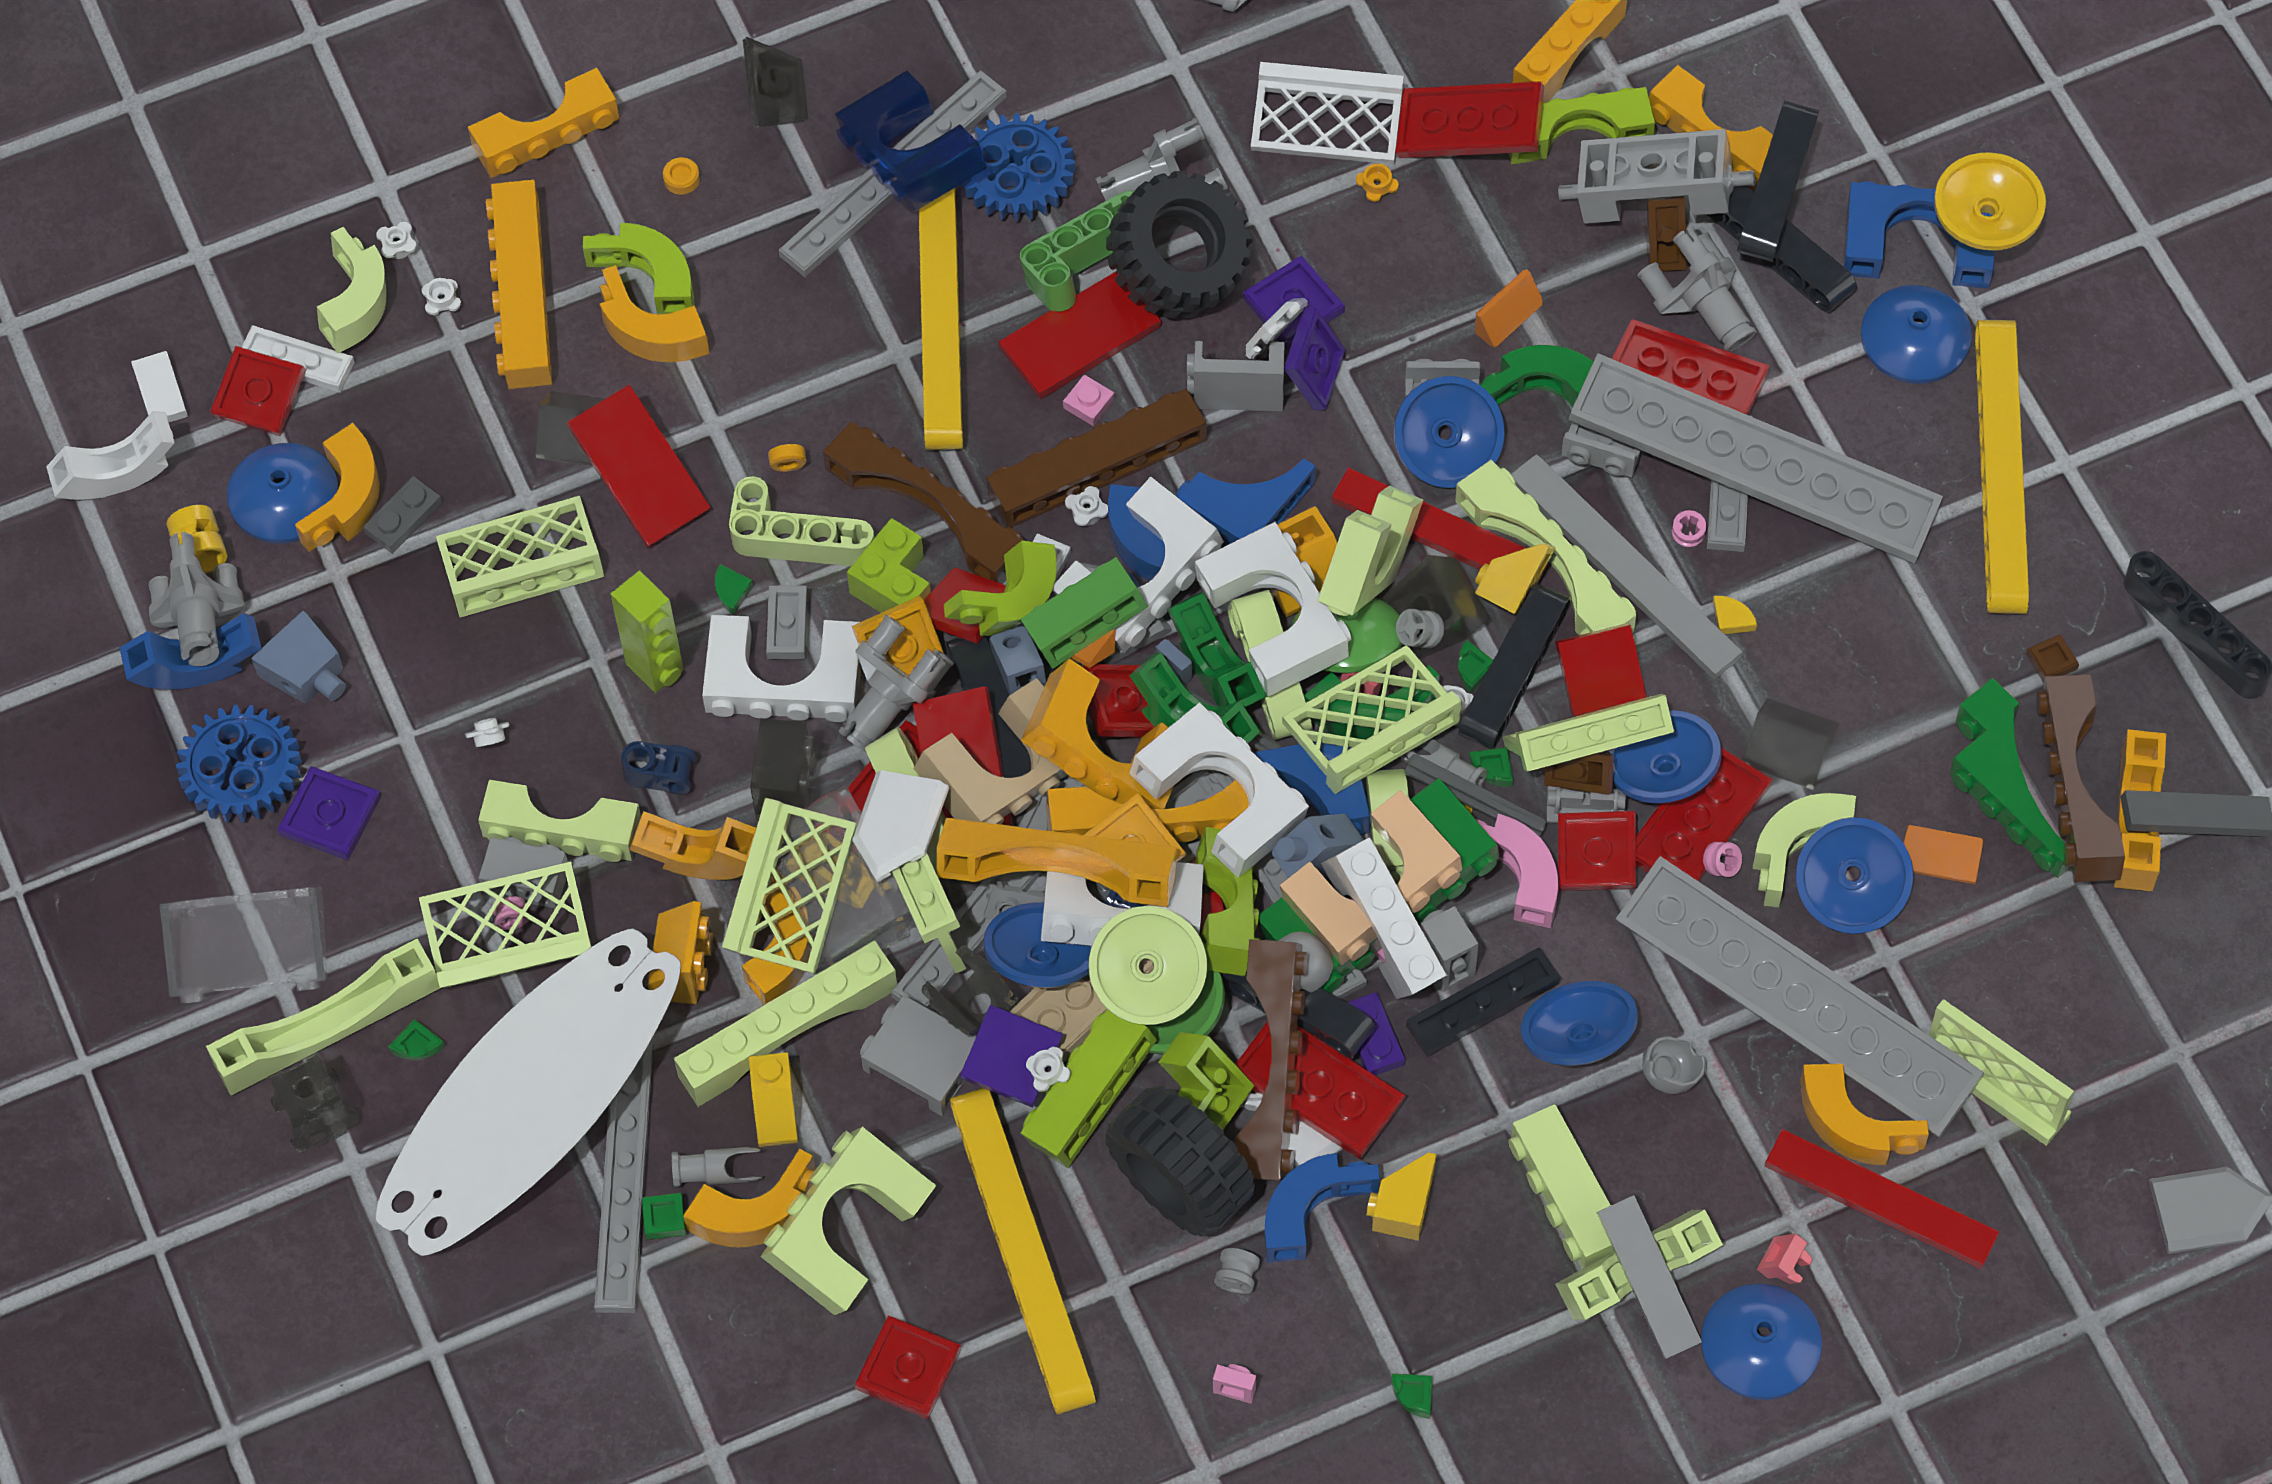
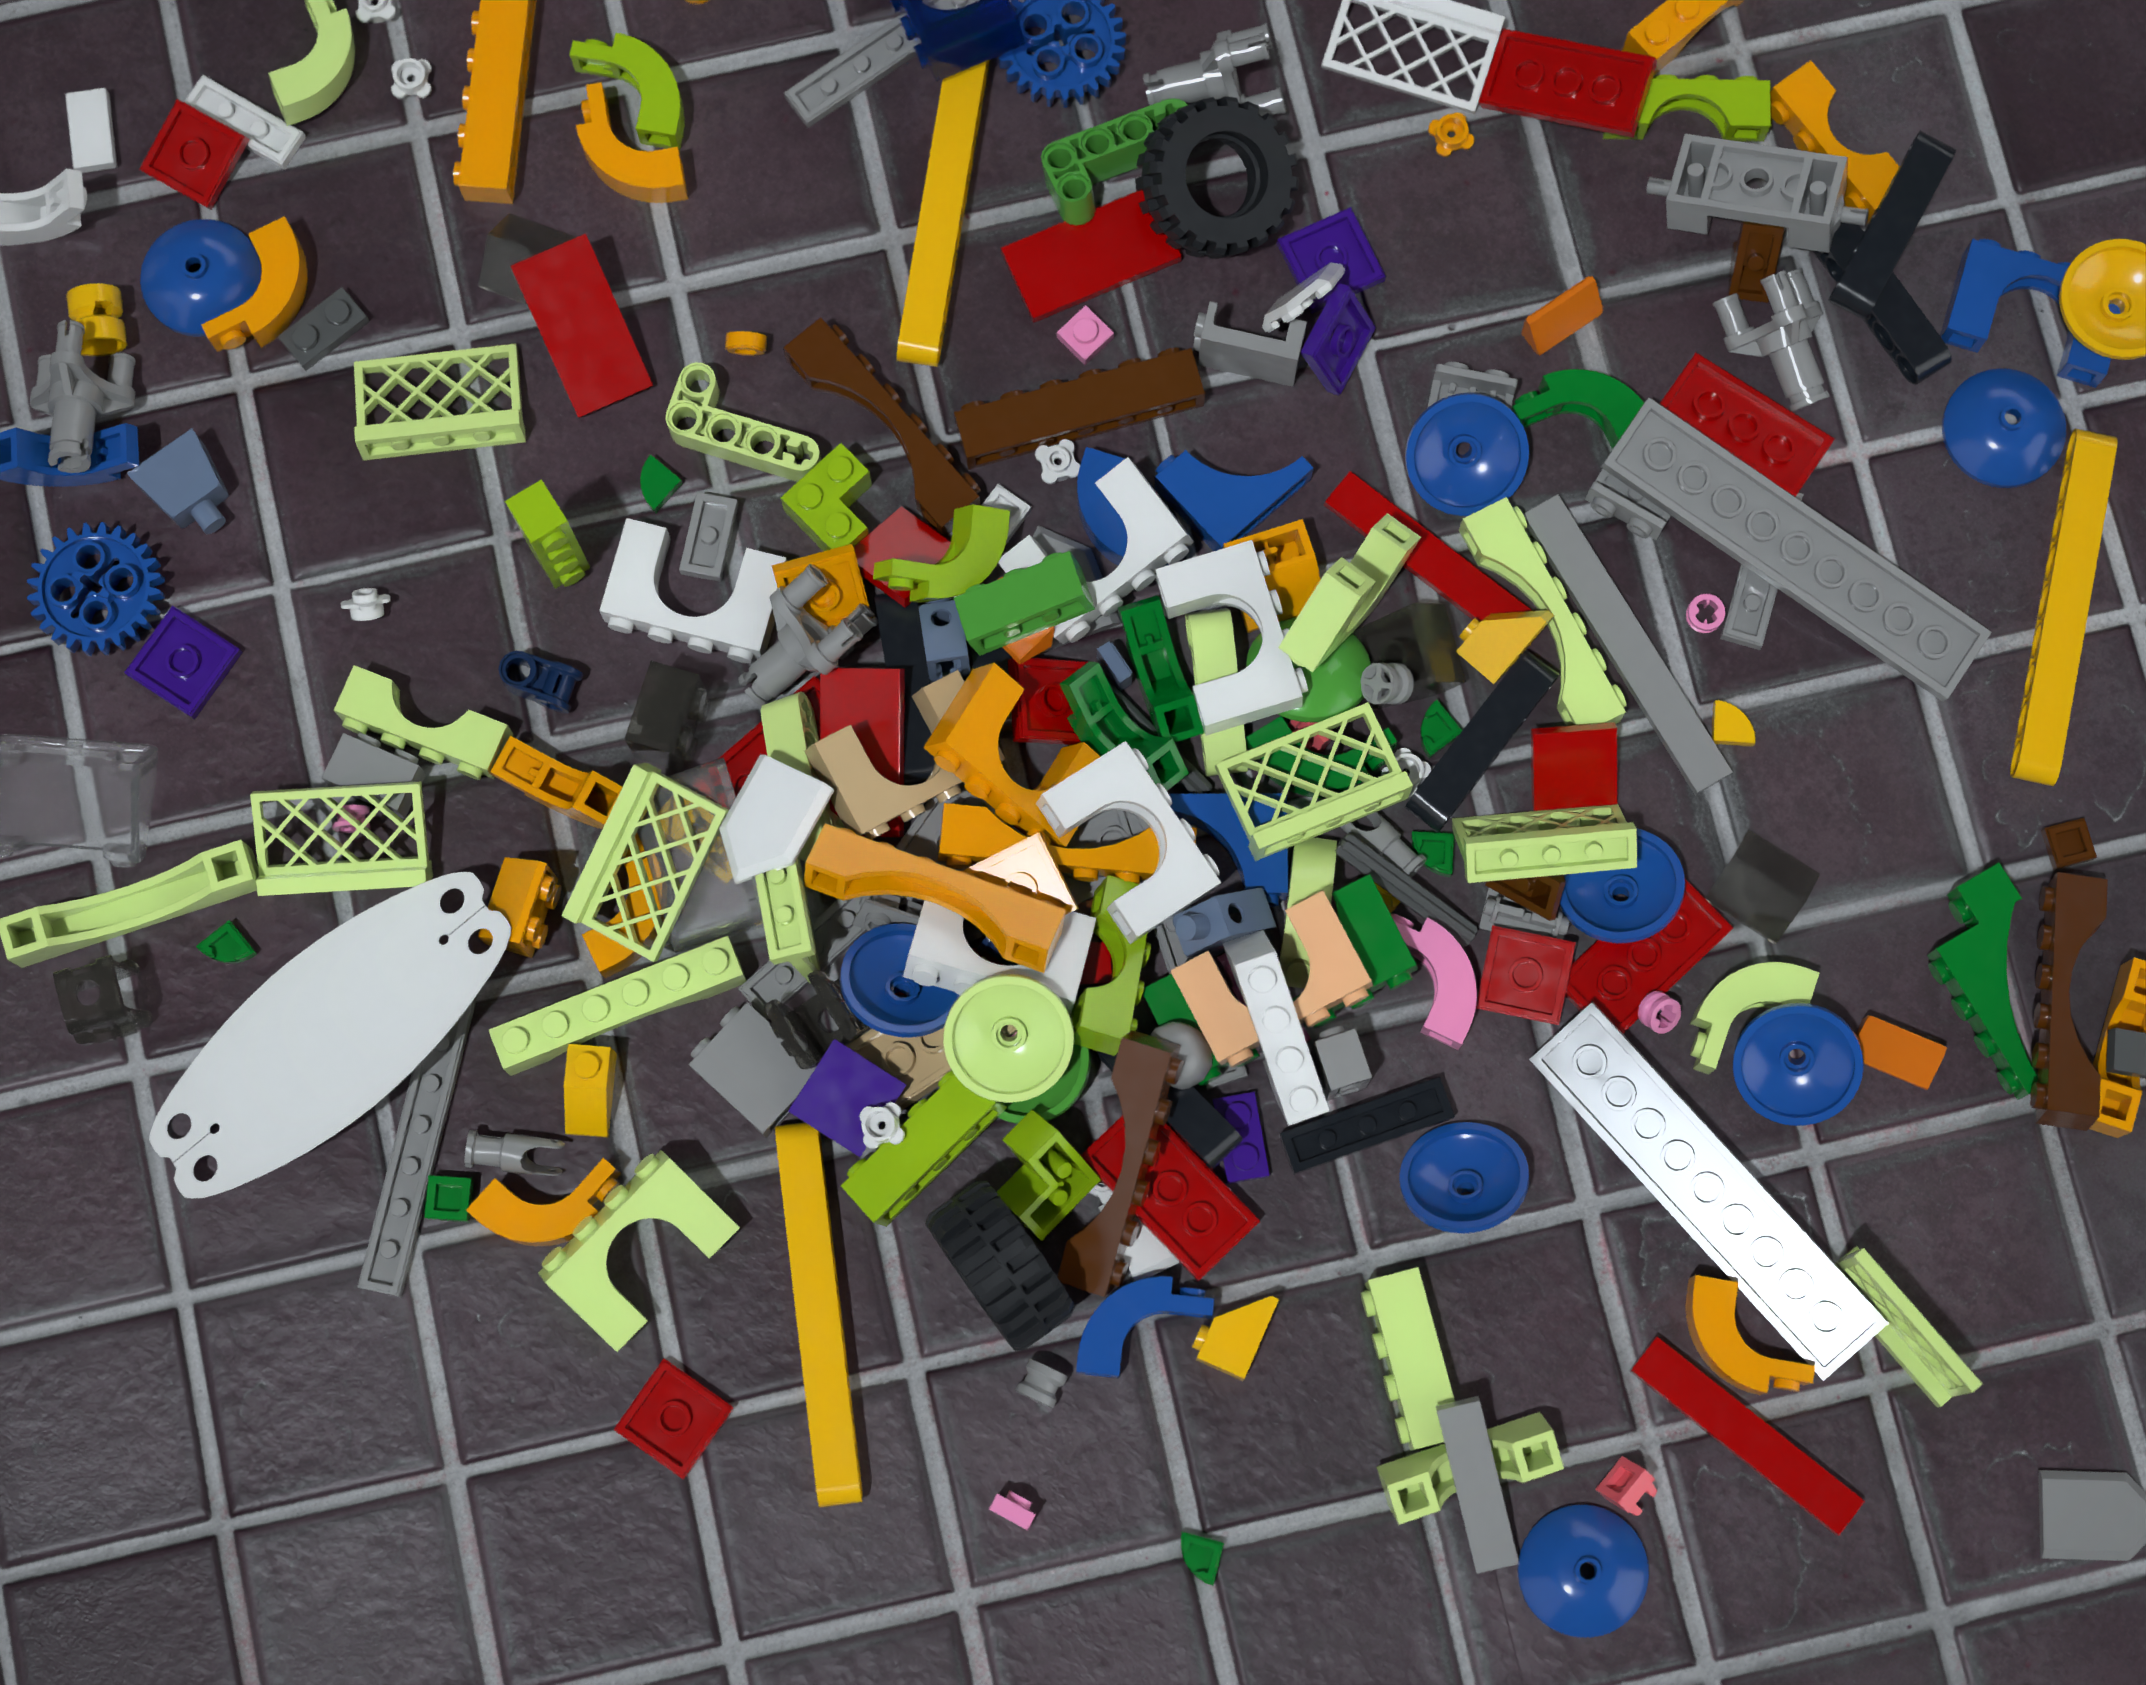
camera: 10 degrees right, 15 degrees up
(1672, 1065) = (1555, 1242): light grey hair -> none

